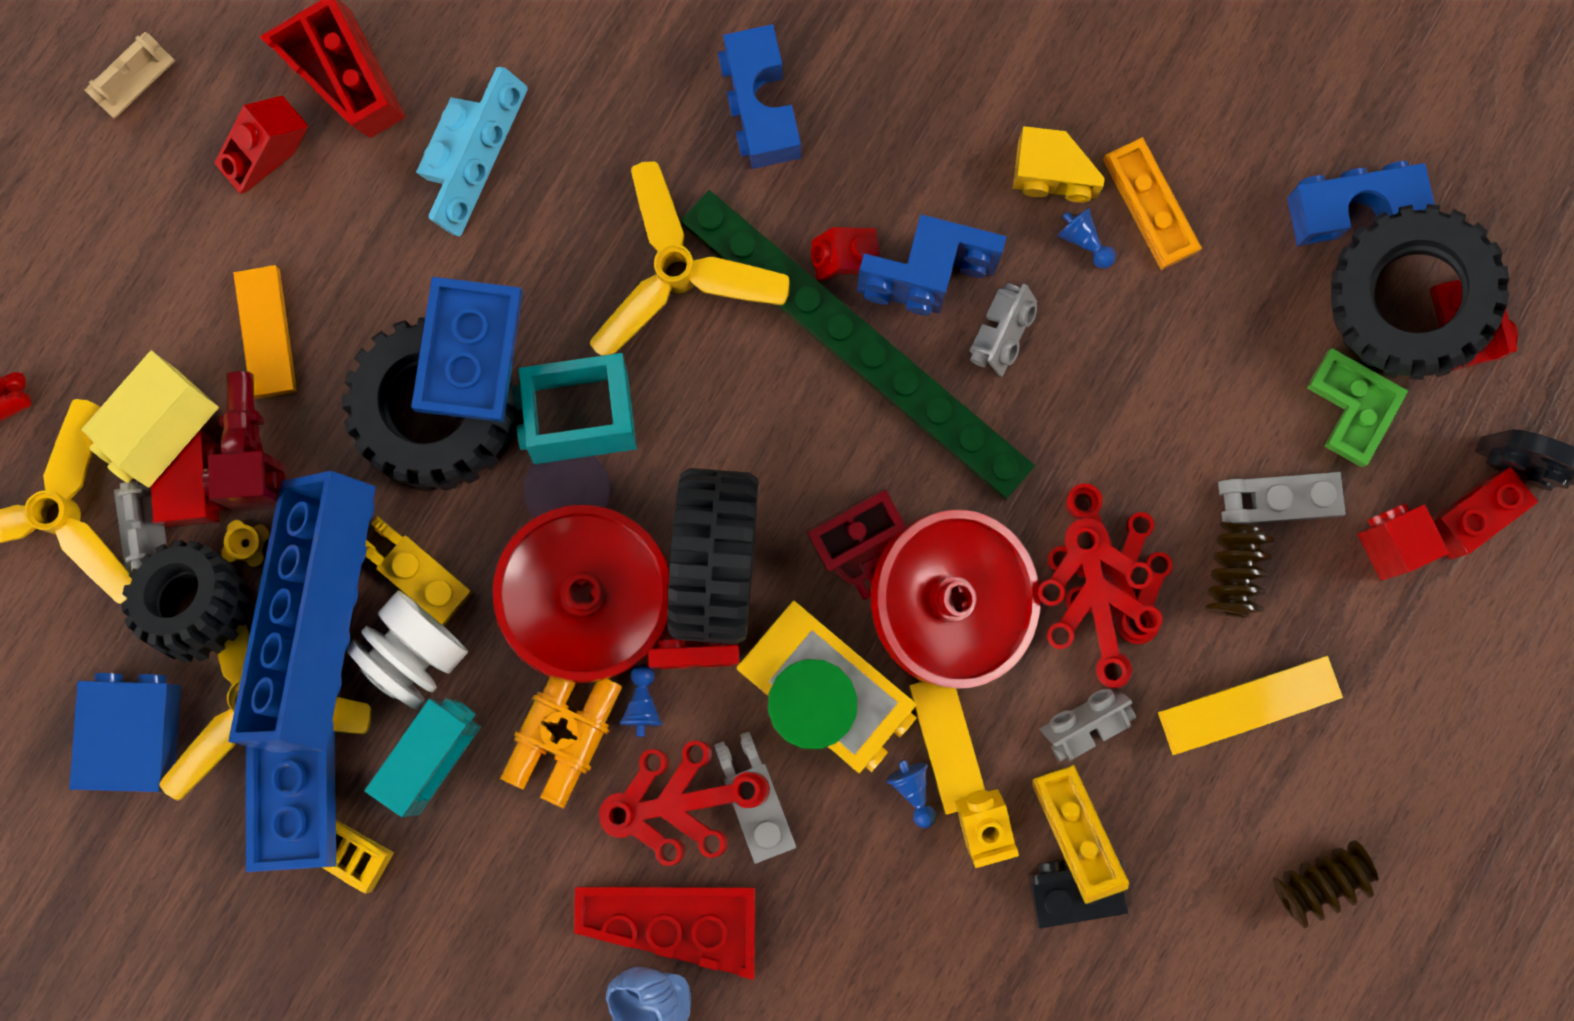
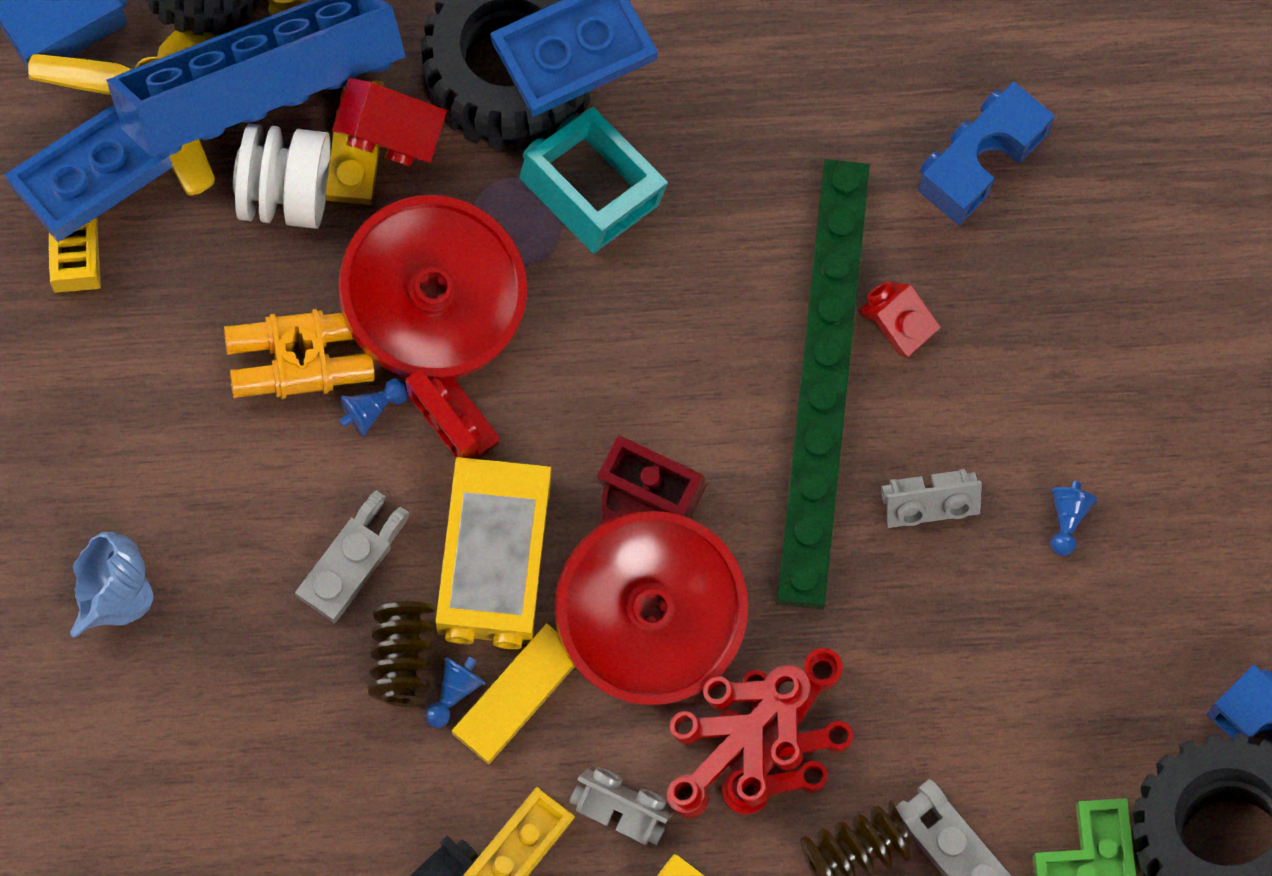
camera: 50 degrees right, 10 degrees down
(420, 536) = (388, 120): none -> red brick
(424, 757) = (201, 250): teal window -> none
(673, 804) = (303, 487): red plant -> none
(676, 922) = (202, 567): red wing -> none
(708, 274) = (791, 210): yellow piece -> none
(712, 556) = (538, 363): black tyre -> none
(812, 704) = (468, 539): green tile -> none
(862, 814) = (398, 653): none -> dark brown piece
(926, 276) = (936, 388): blue bracket -> none
(986, 827) = (482, 763): yellow brick -> none
(1054, 165) = (1112, 440): yellow slope -> none
(1152, 203) = (1145, 555): light orange tile -> none

